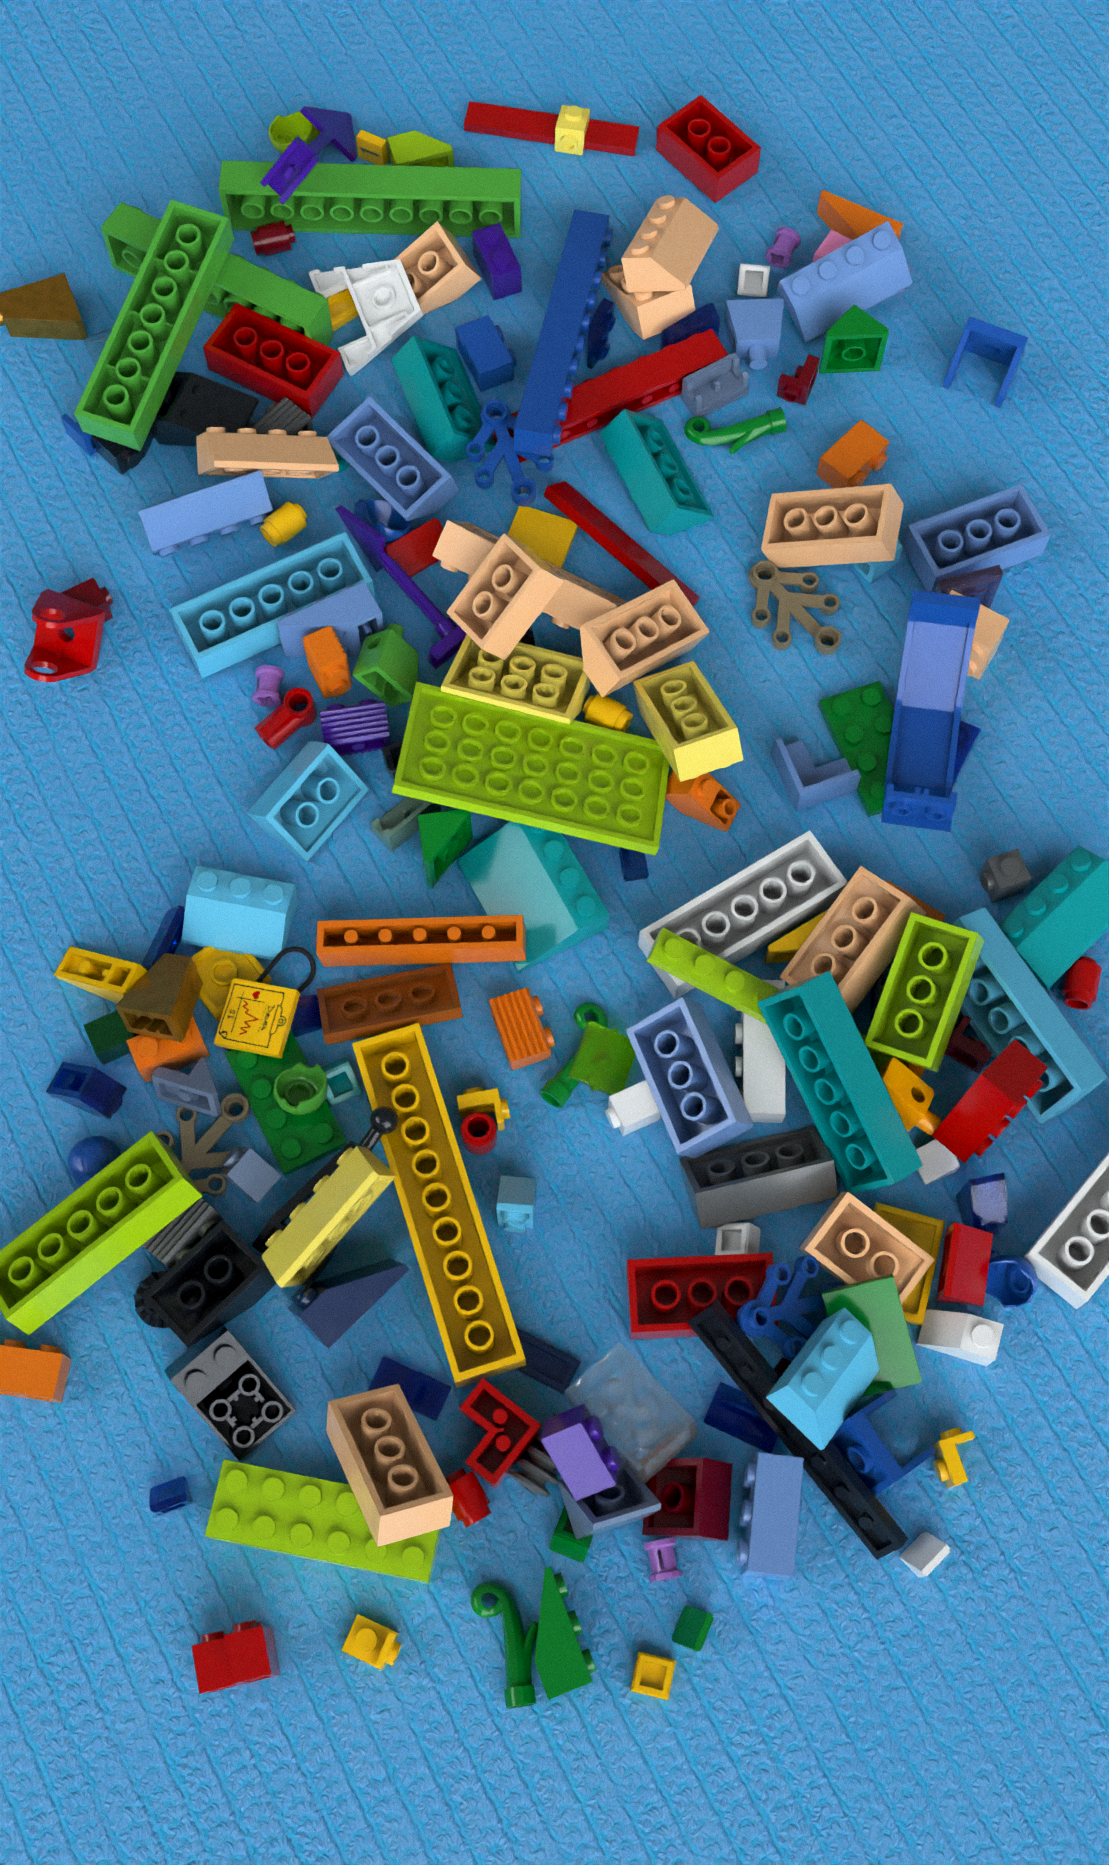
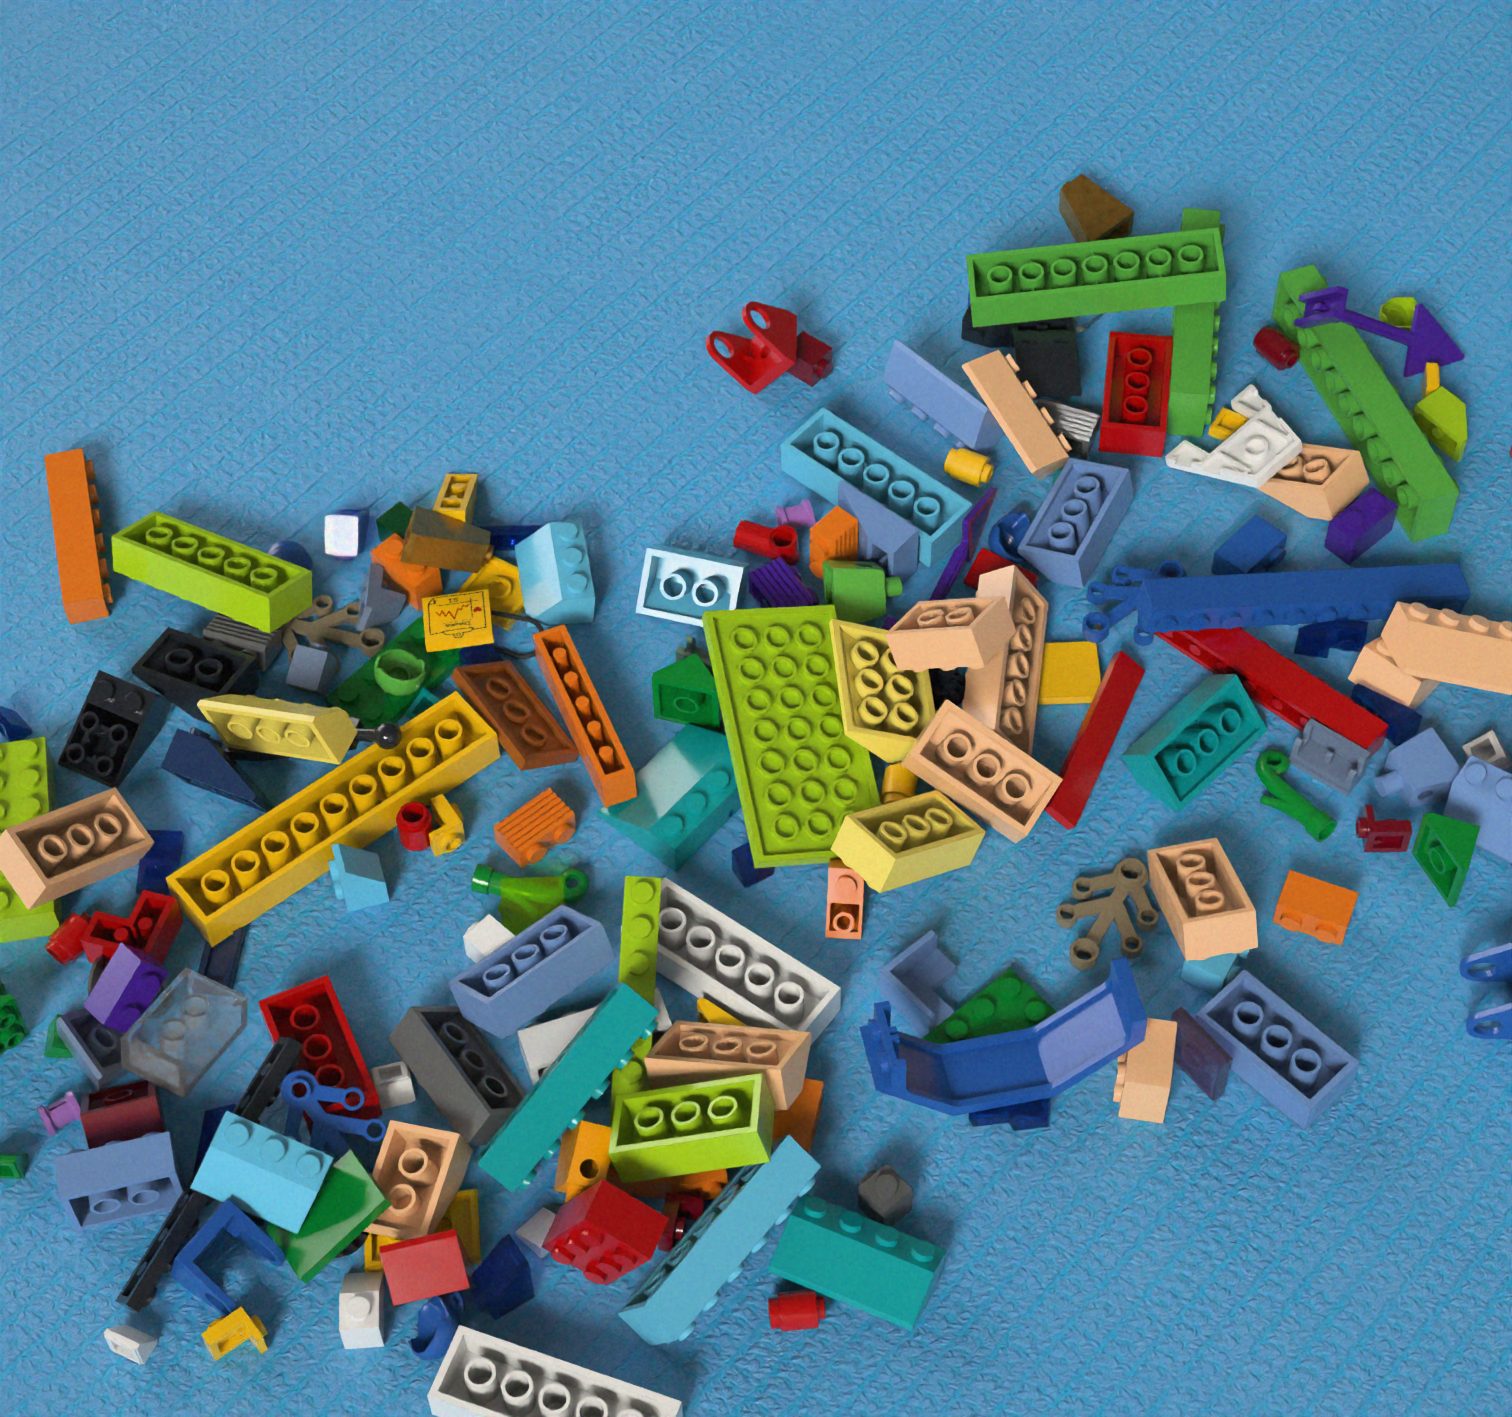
camera: 70 degrees right, 15 degrees down
(440, 398) = (1181, 530): teal slope -> none

